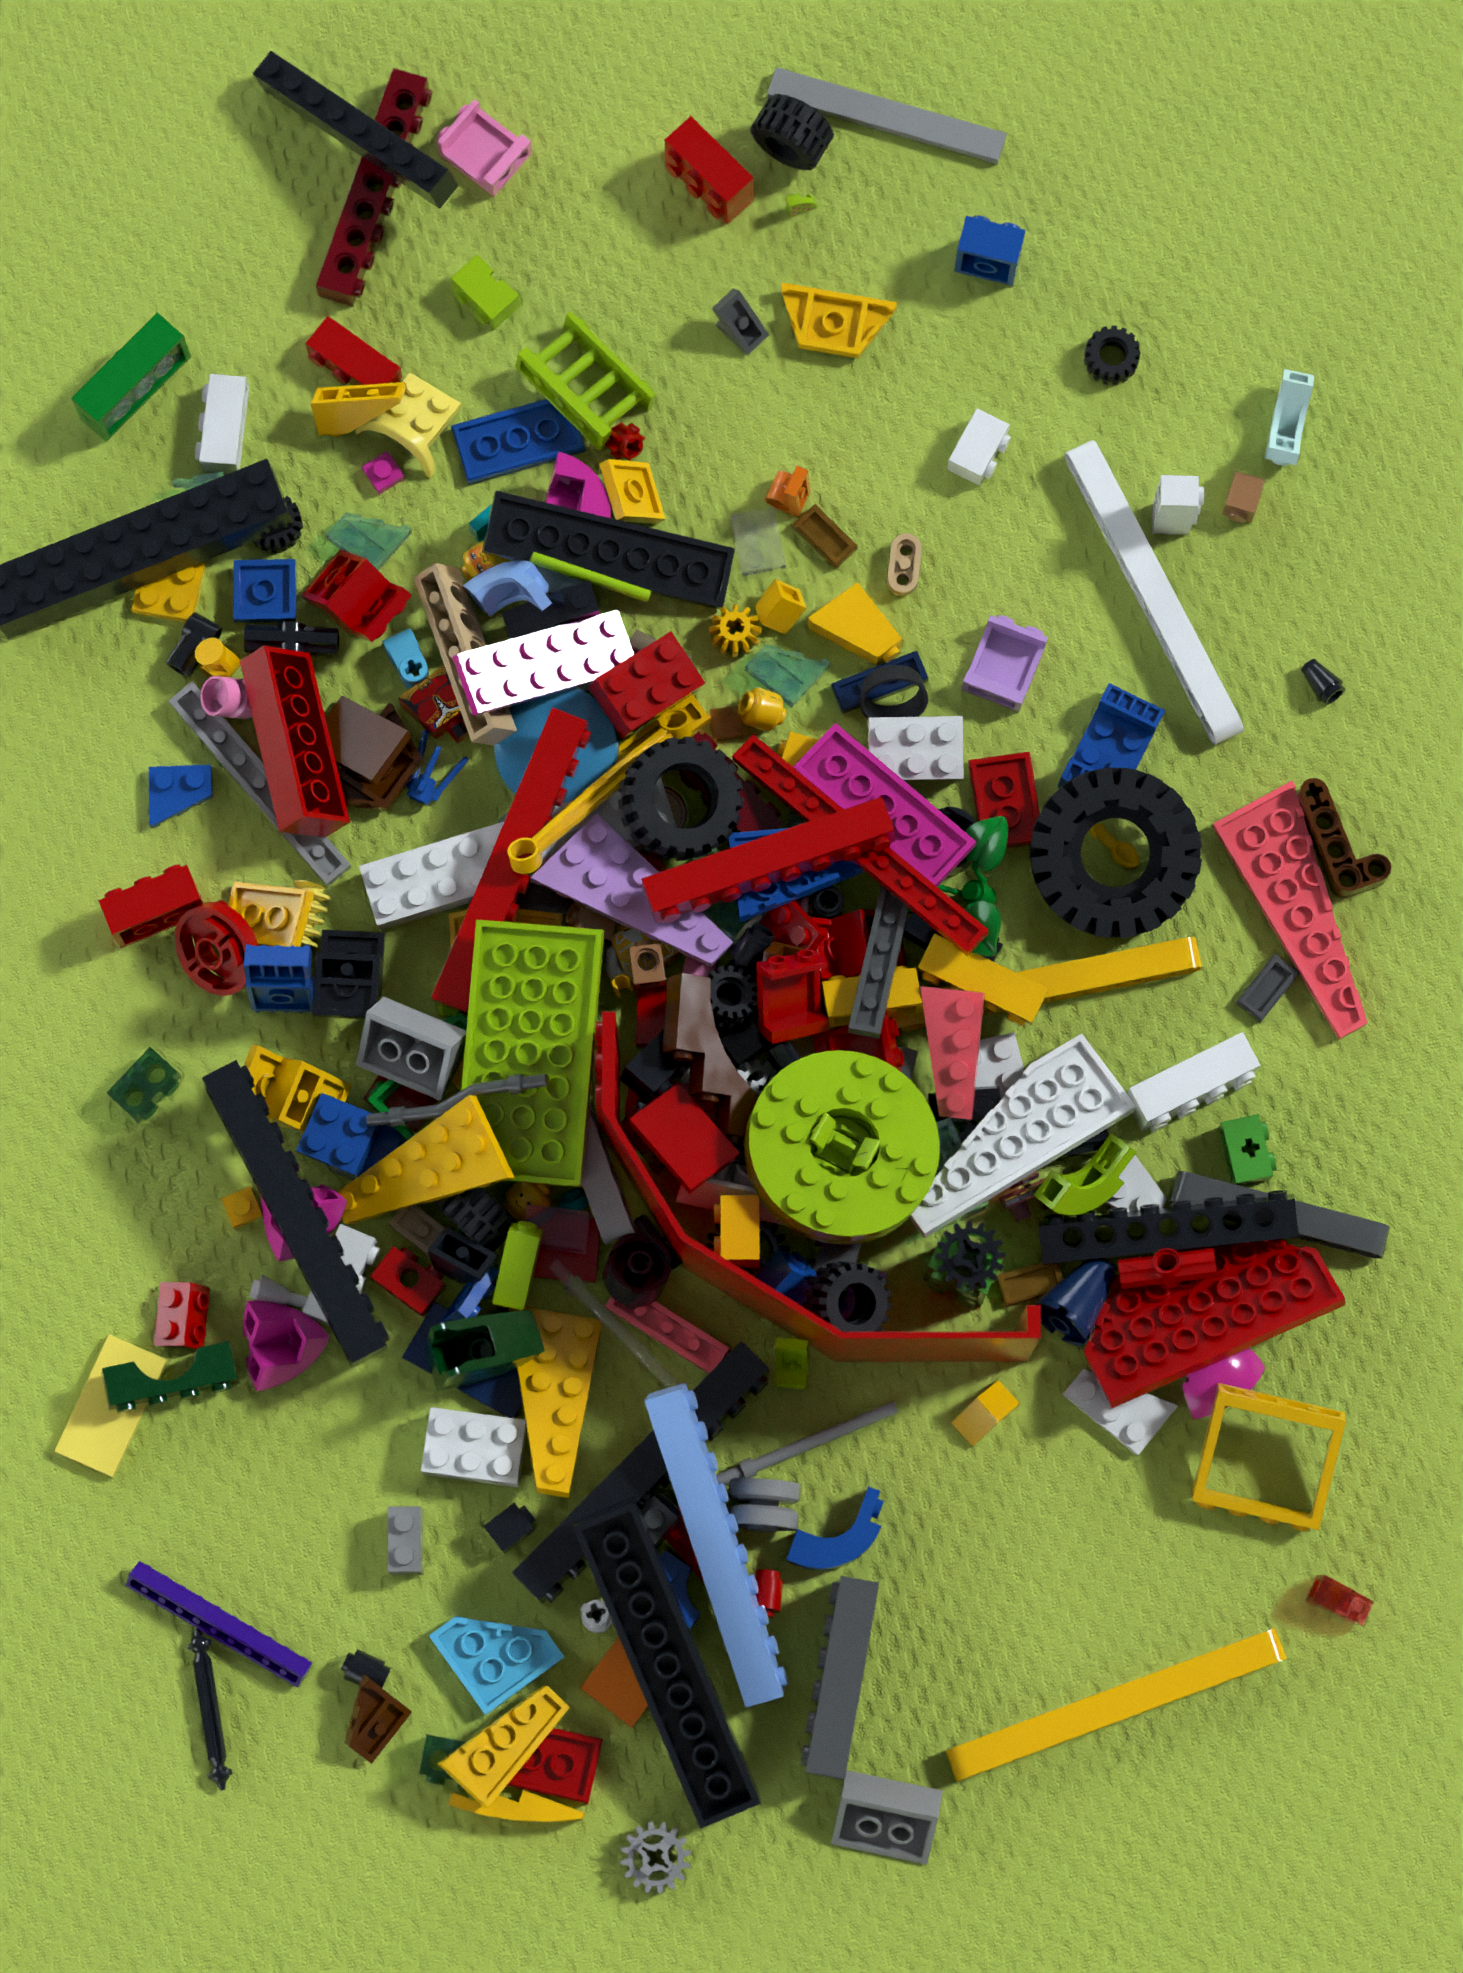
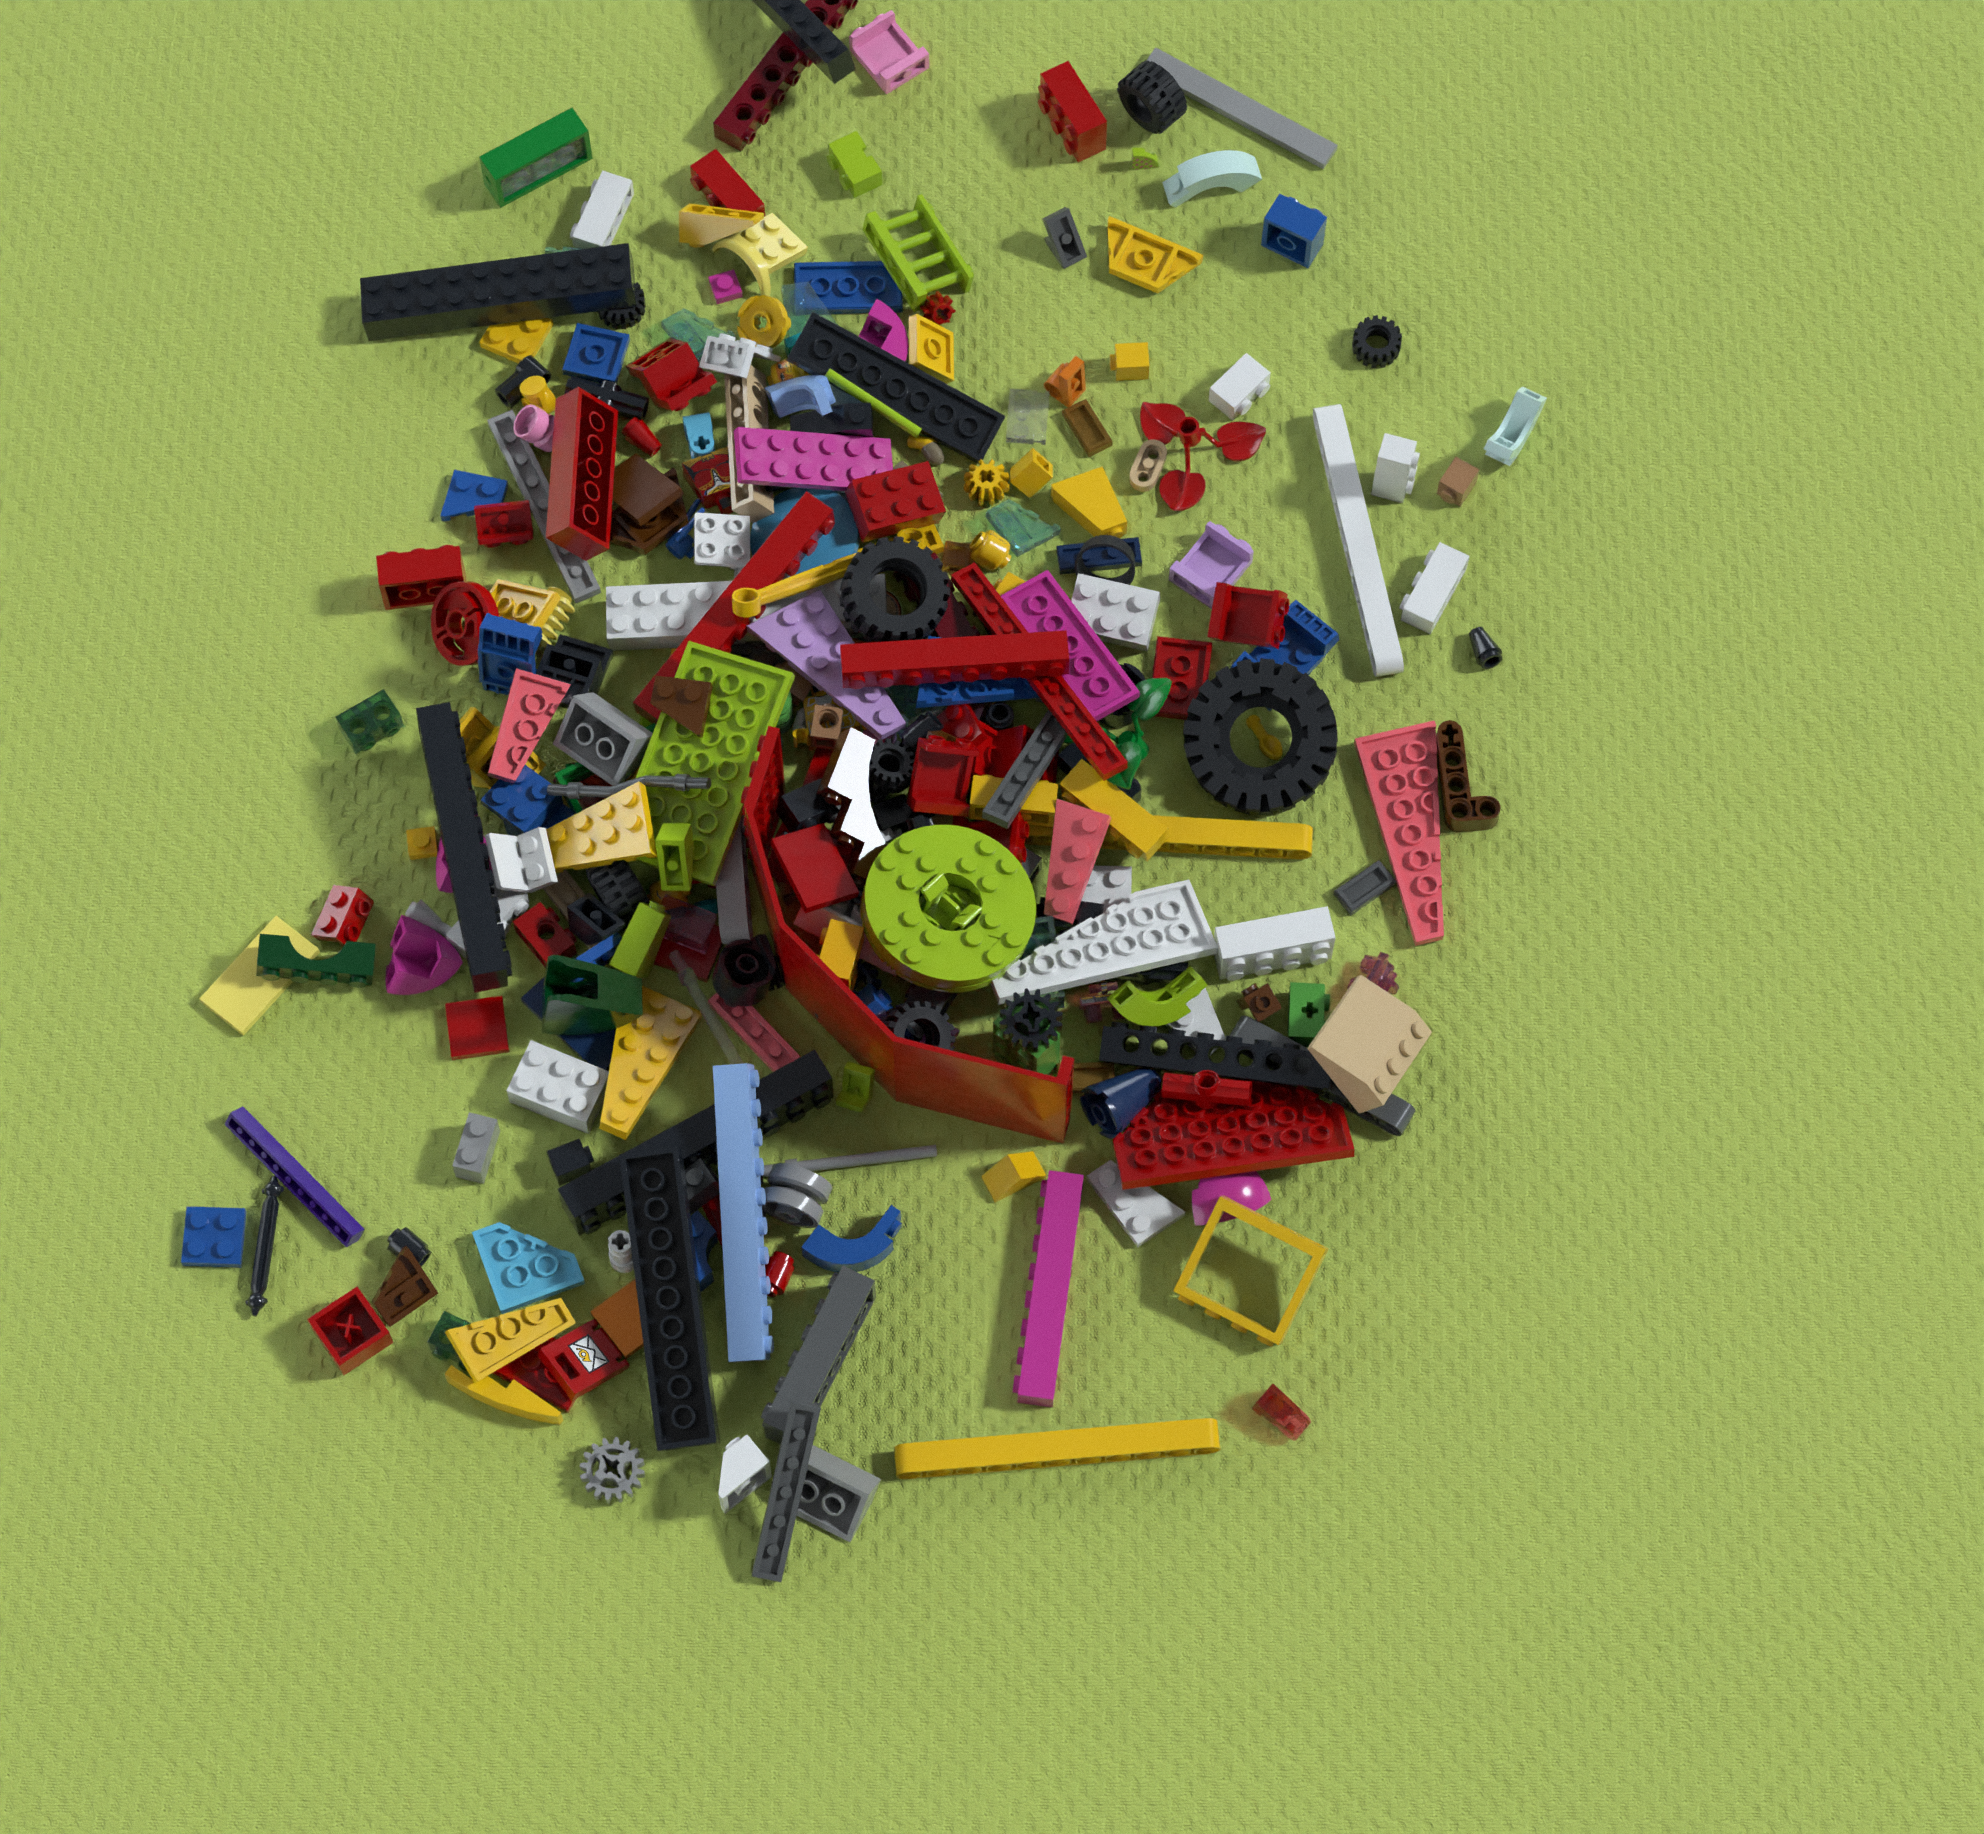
camera: 15 degrees right, 10 degrees down
(151, 1713) = (213, 1237): none -> blue plate
(222, 817) = (503, 523): none -> red bracket
(319, 1040) = (526, 715): none -> coral wing
(332, 1782) = (350, 1330): none -> red brick
(343, 675) = (641, 436): none -> red cone
(362, 1210) = (521, 861): none -> white bracket
(364, 1402) = (477, 1027): none -> red tile
(420, 559) = (732, 356): none -> white bracket
(454, 503) = (766, 307): none -> yellow plate
(470, 779) = (722, 540): none -> white bracket
(479, 480) = (800, 302): none -> clear light blue wing
(490, 991) = (683, 701): none -> reddish brown wing
(532, 1168) = (675, 856): none -> lime slope
(595, 1739) = (589, 1355): none -> red container
(661, 606) = (929, 448): none -> arm
(794, 1824) = (741, 1472): none -> white slope
(850, 1837) = (786, 1490): none -> dark grey plate
(852, 448) = (1130, 361): none -> yellow brick
(888, 199) = (1212, 170): none -> light aqua arch
(907, 508) = (1164, 421): none -> red plant
(1060, 1530) = (1050, 1289): none -> dark pink brick
(1064, 715) = (1248, 616): none -> red panel
(1193, 1149) = (1259, 1000): none -> reddish brown bracket
(1250, 626) = (1433, 587): none -> white brick
(1309, 1080) = (1379, 972): none -> clear pink hips
(1328, 1174) = (1369, 1043): none -> tan slope

